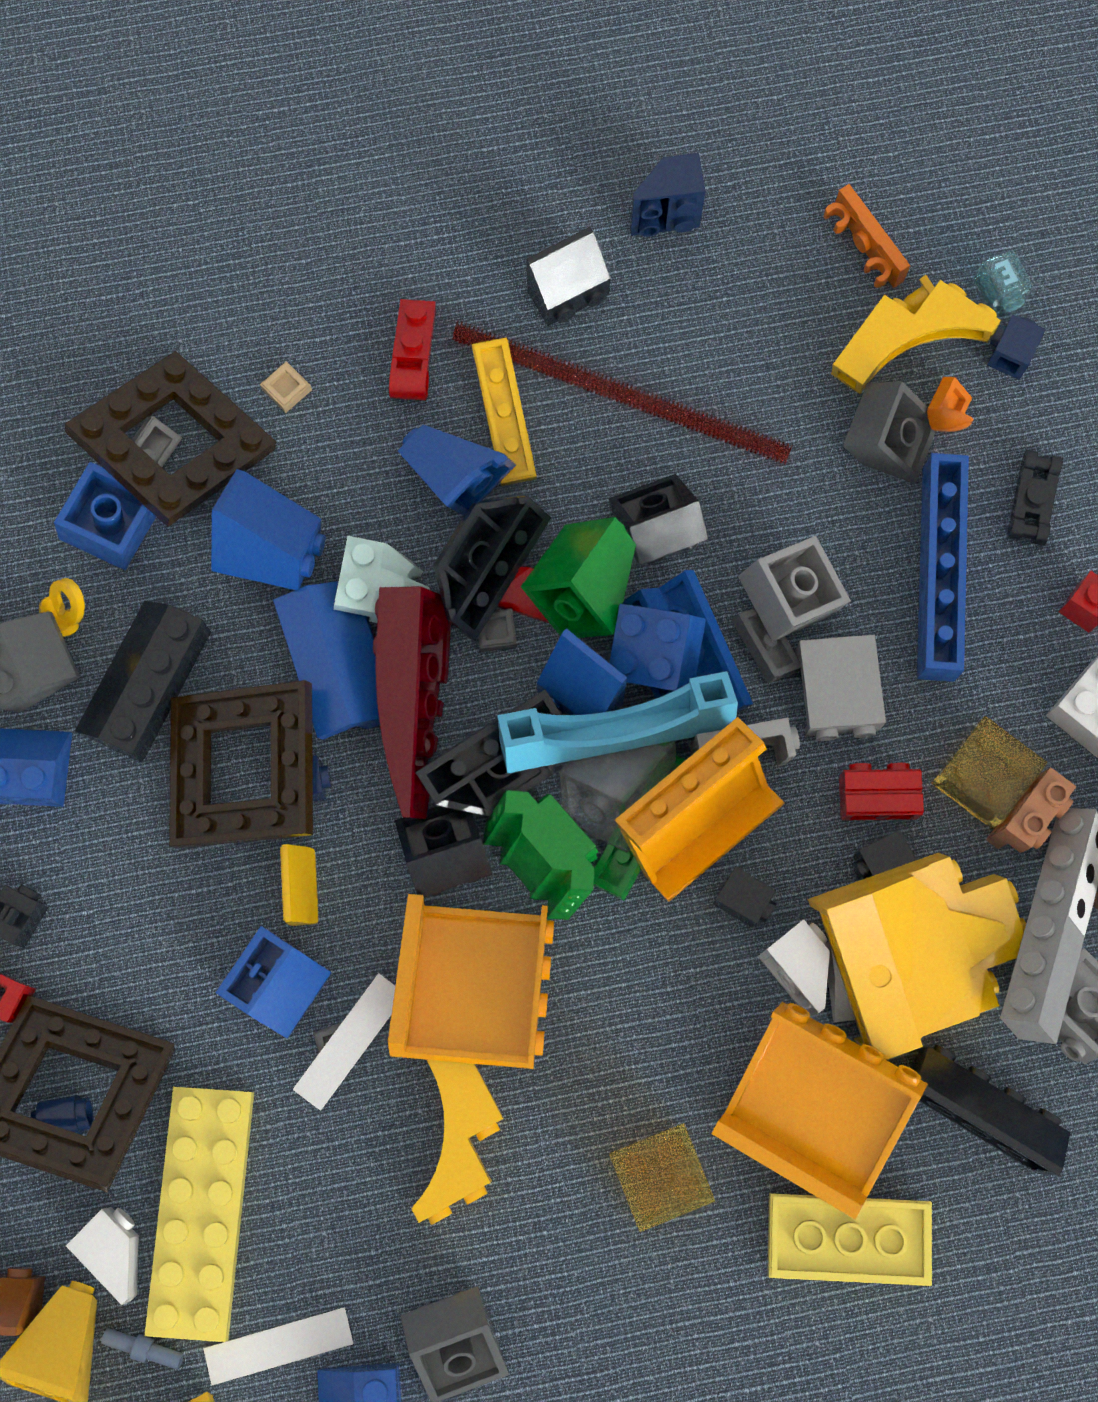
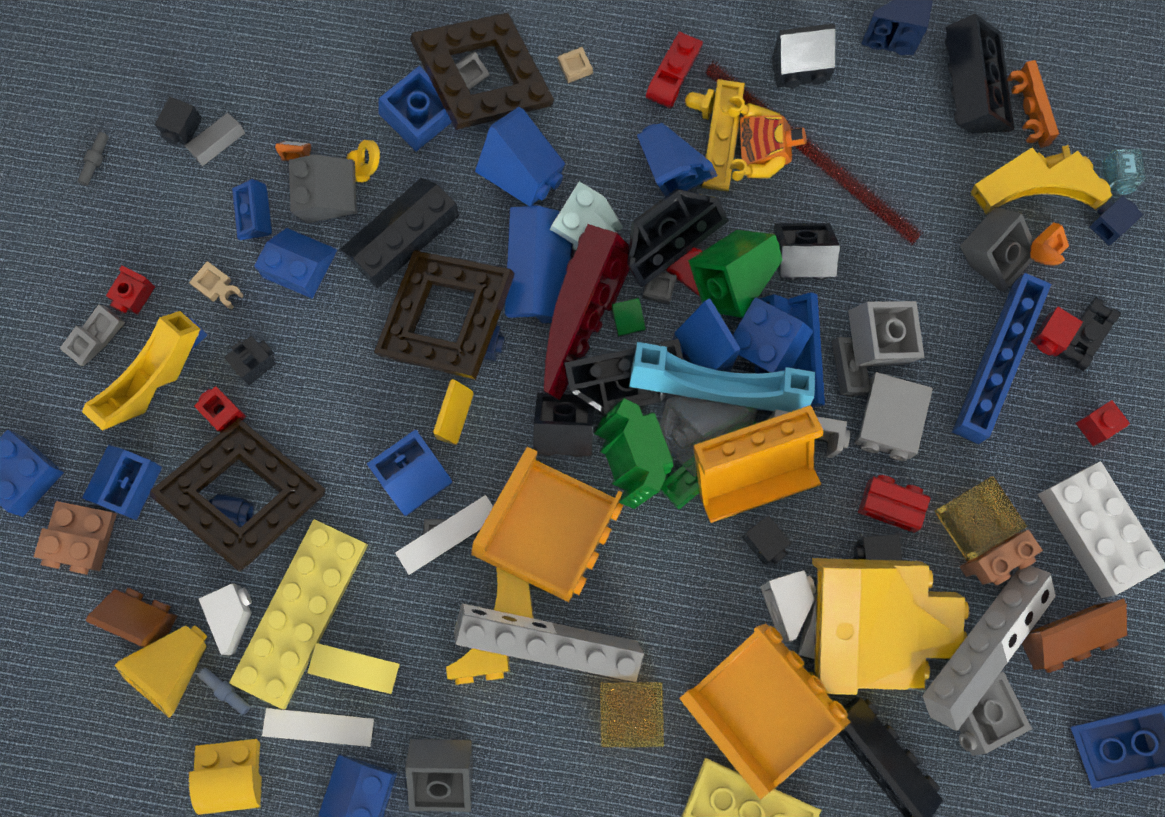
camera: 20 degrees right, 0 degrees up
(295, 1255) = (353, 668): none -> light yellow brick
(462, 379) = (701, 102): none -> yellow piece
(472, 683) = (628, 317): none -> green slope
(525, 1129) = (548, 643): none -> light grey brick
(558, 401) = (764, 140): none -> torso
(788, 226) = (978, 76): none -> black slope
(995, 510) = (1056, 332): none -> red brick

